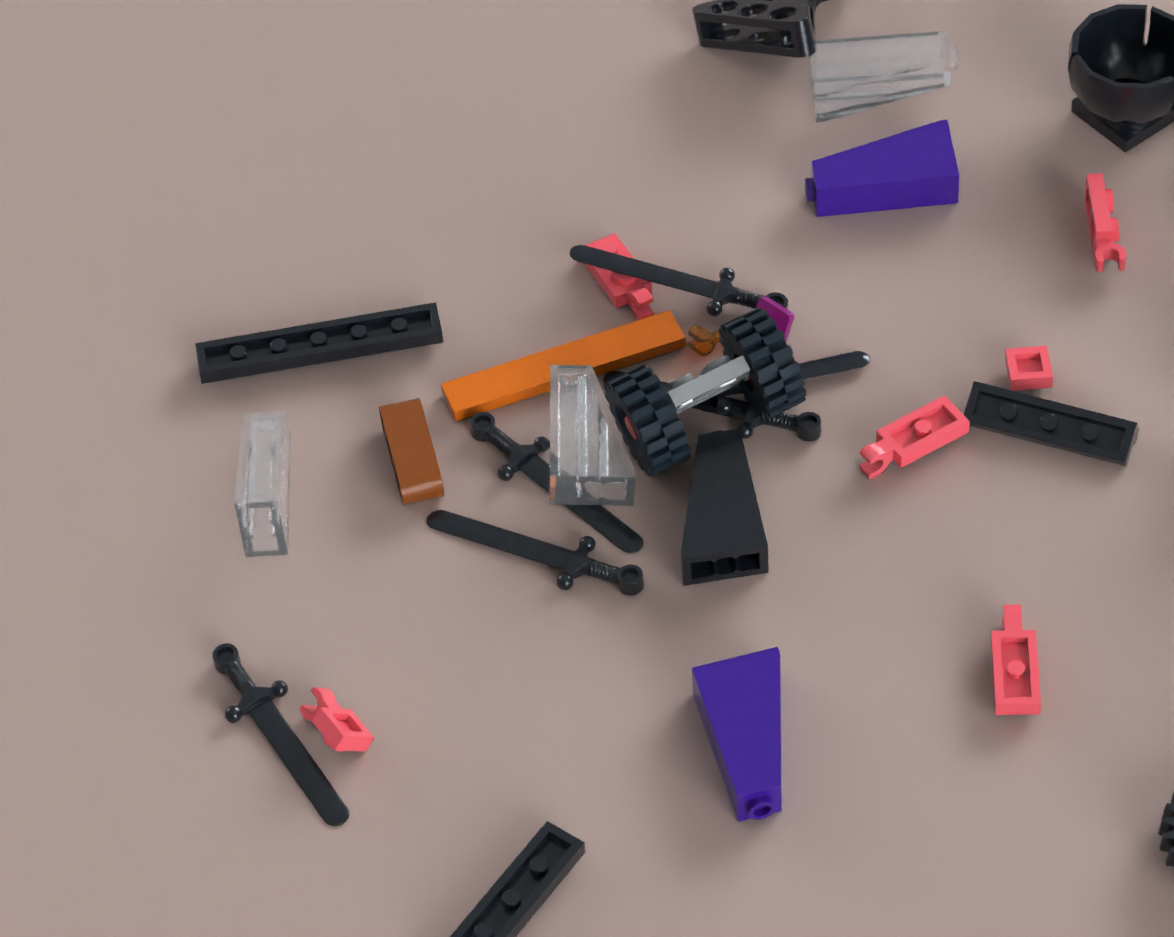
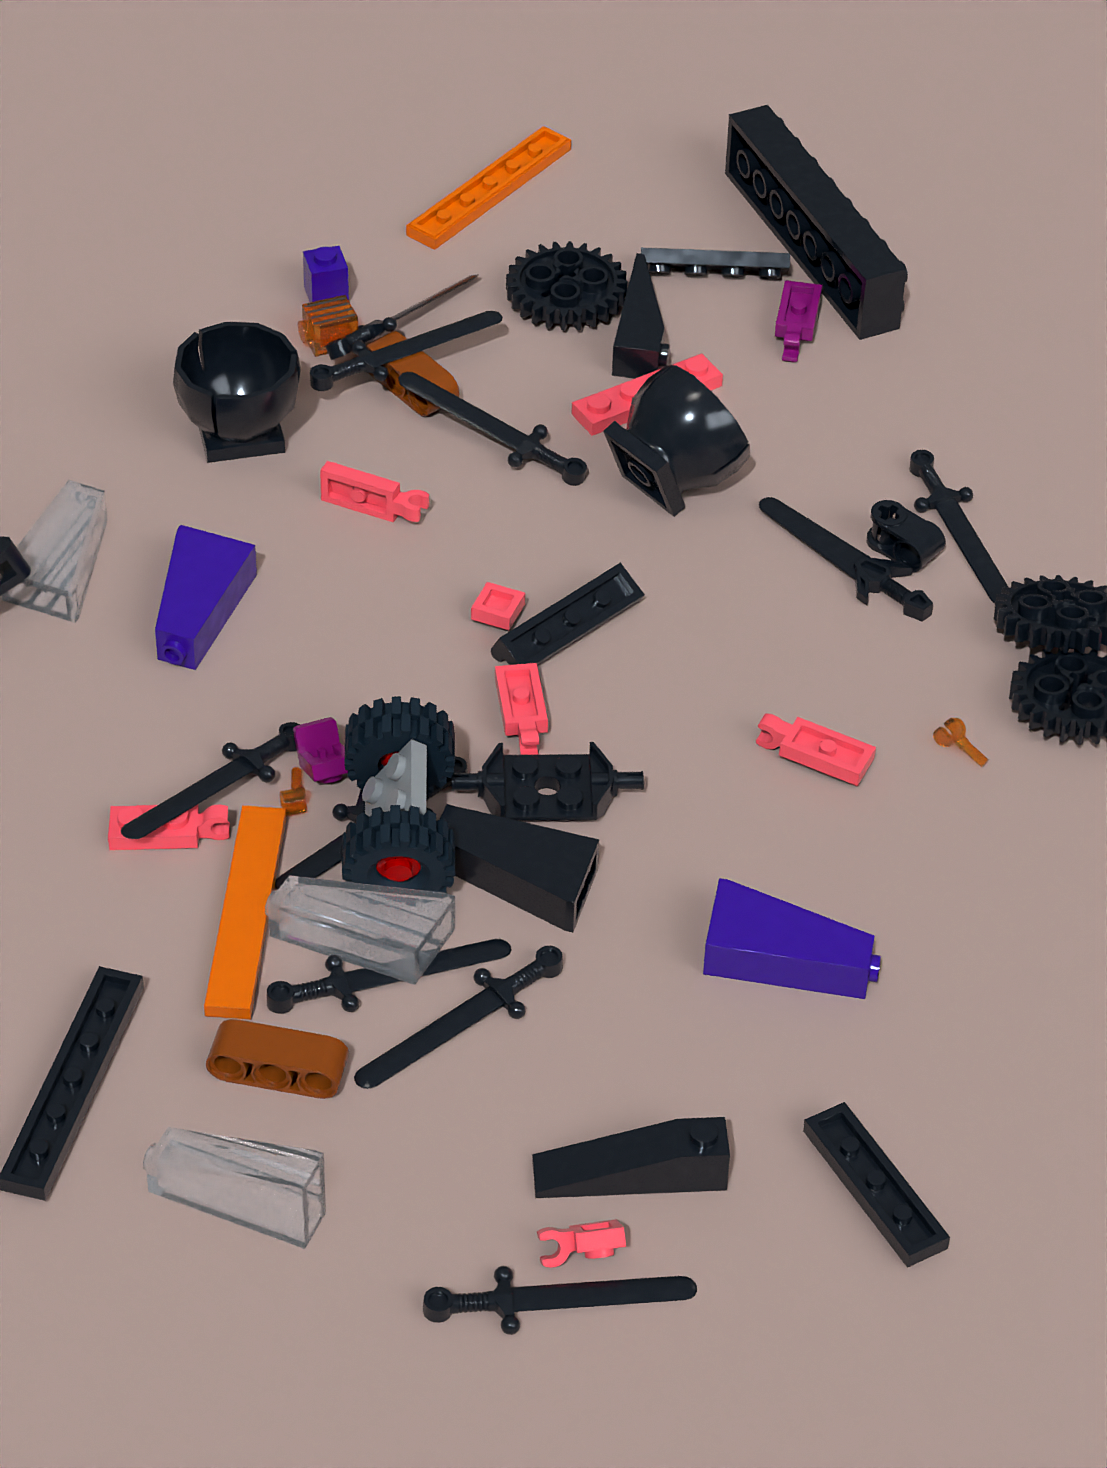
camera: 70 degrees left, 5 degrees down
(441, 730) = (644, 1160): none -> black slope
(824, 466) = (581, 784): none -> black plate
(1107, 772) = (958, 731): none -> clear orange hand

